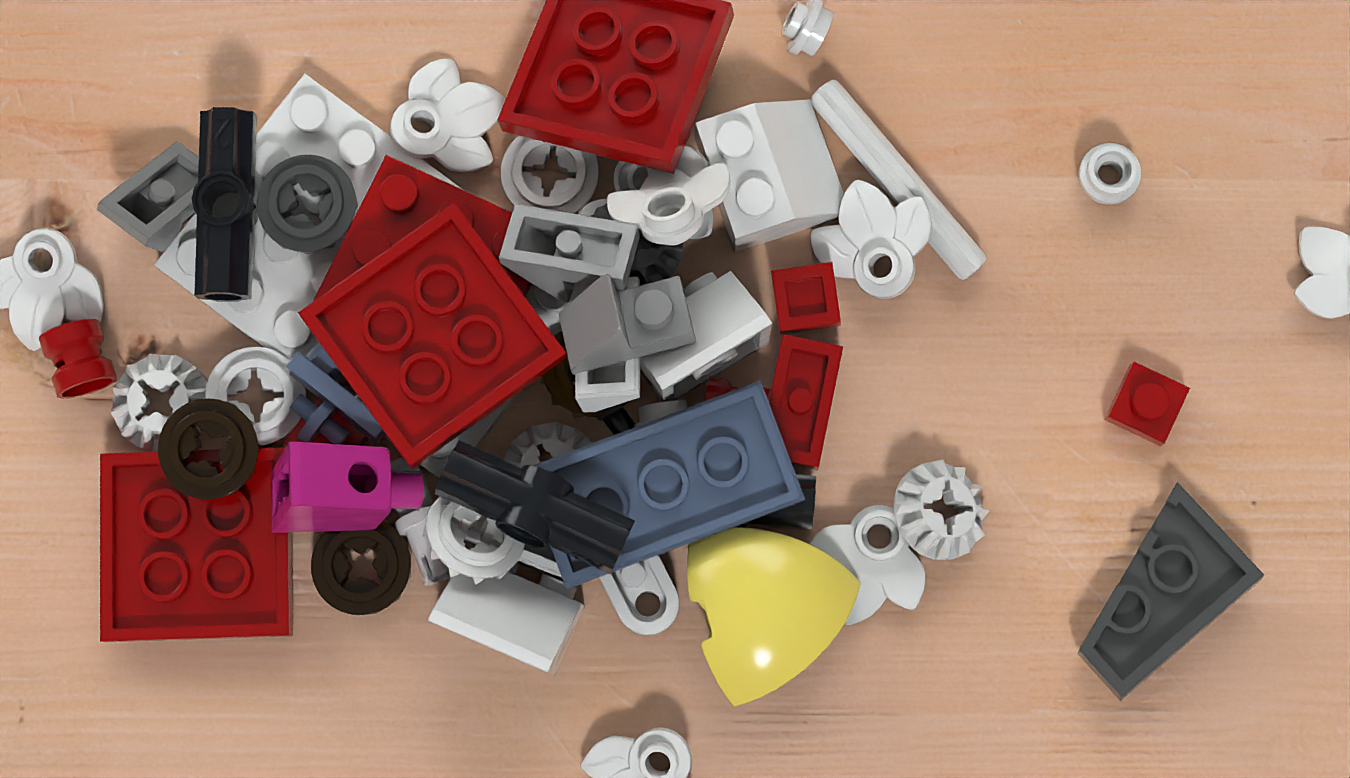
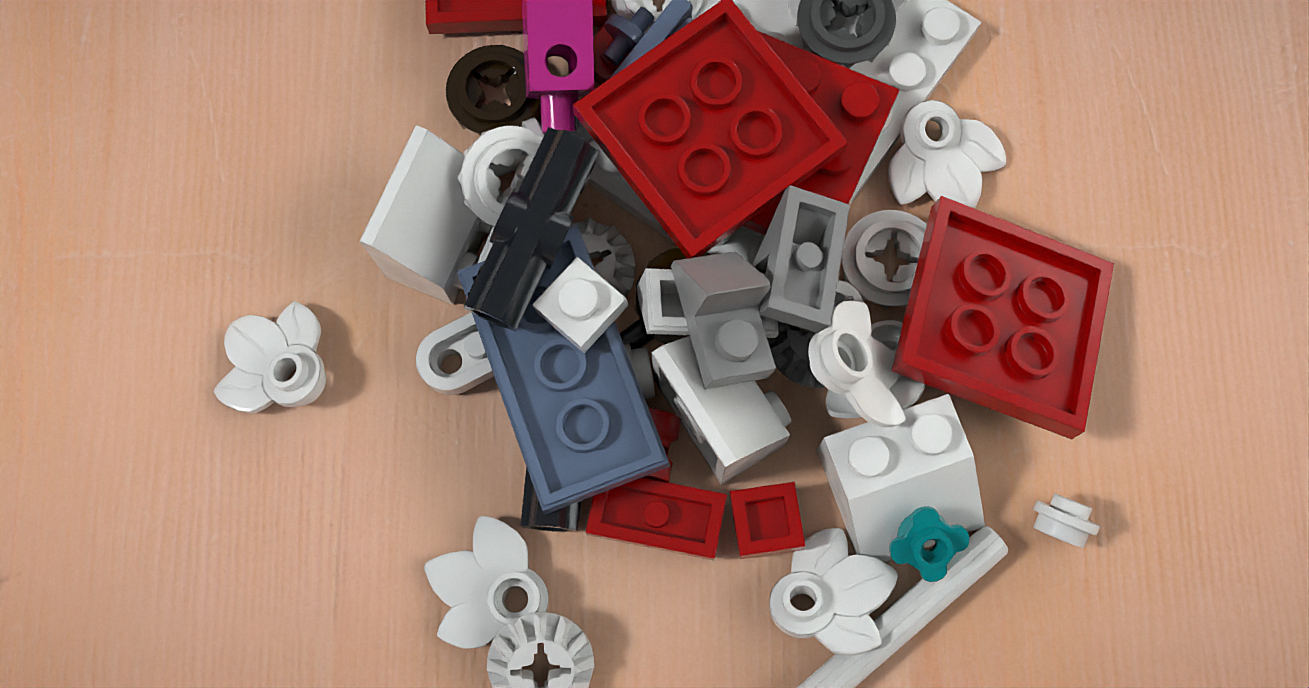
camera: 90 degrees right, 5 degrees down
(608, 462) = (580, 305): none -> white plate
(766, 606) = (436, 476): light yellow brick -> none
(819, 156) = (917, 529): none -> teal plate

